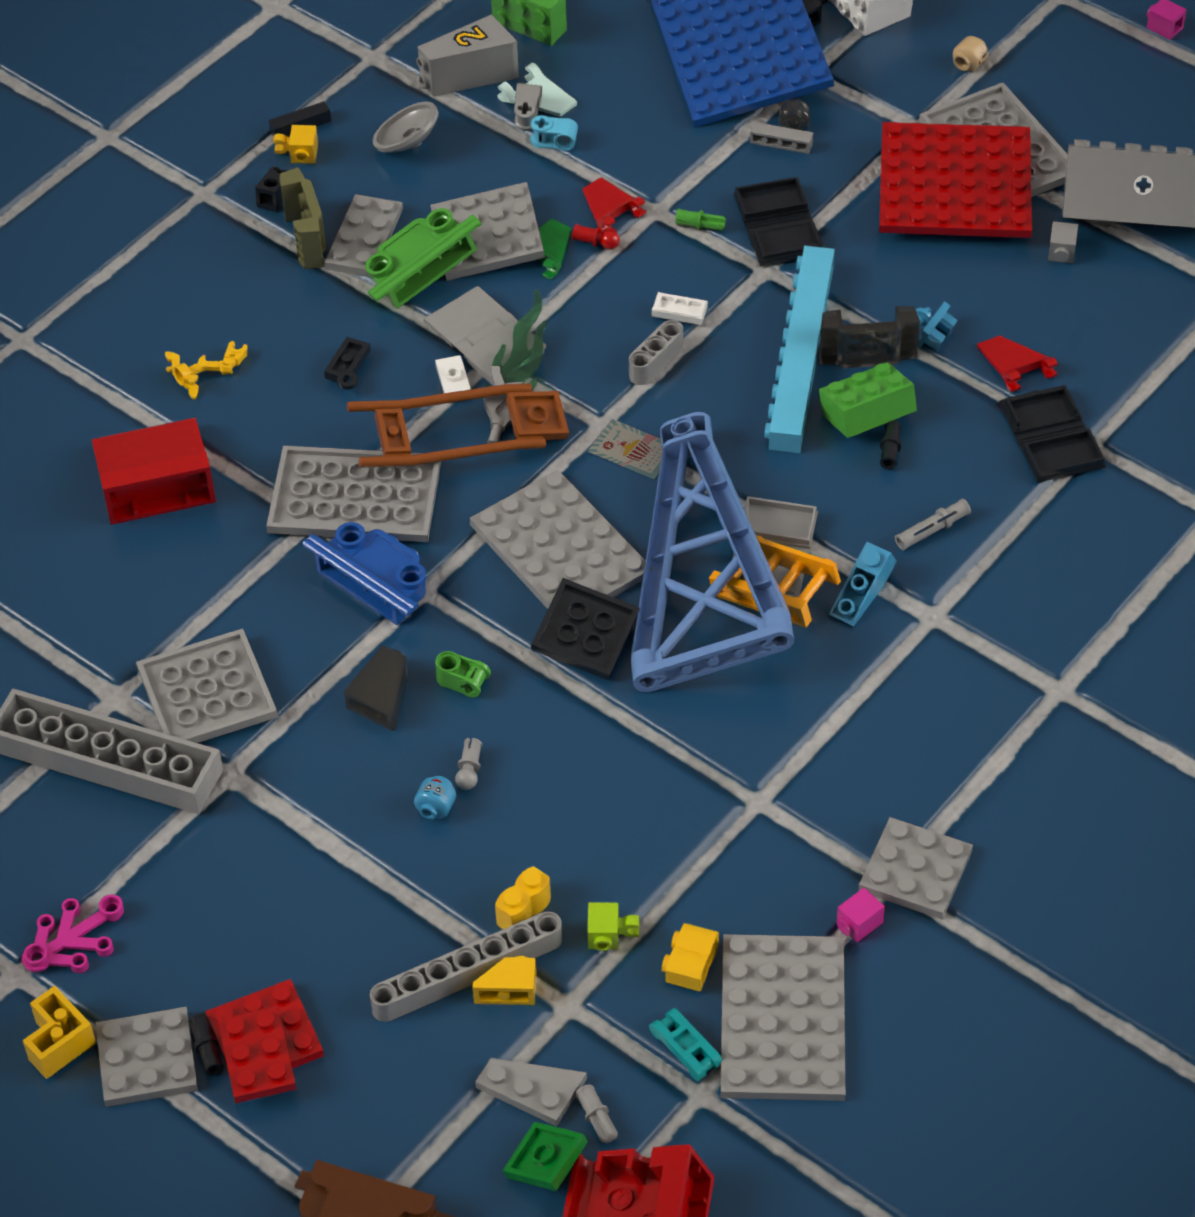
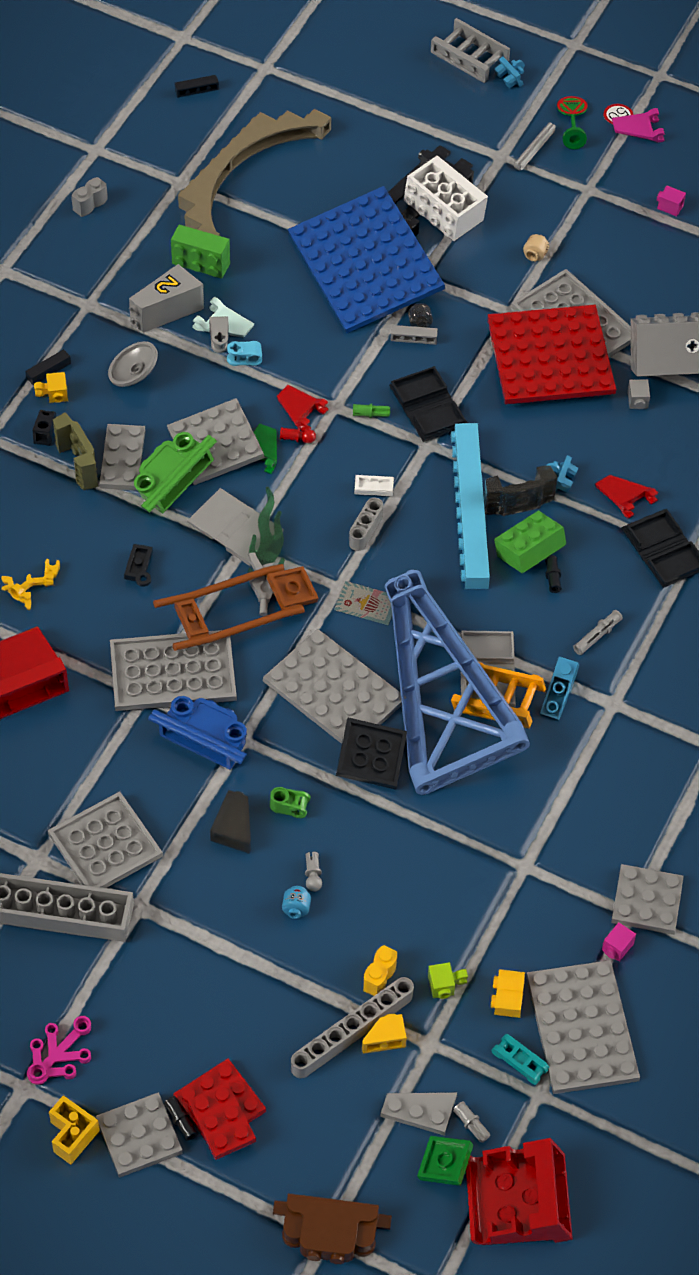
camera: 15 degrees left, 5 degrees up
(452, 374) = (220, 564): white plate -> none

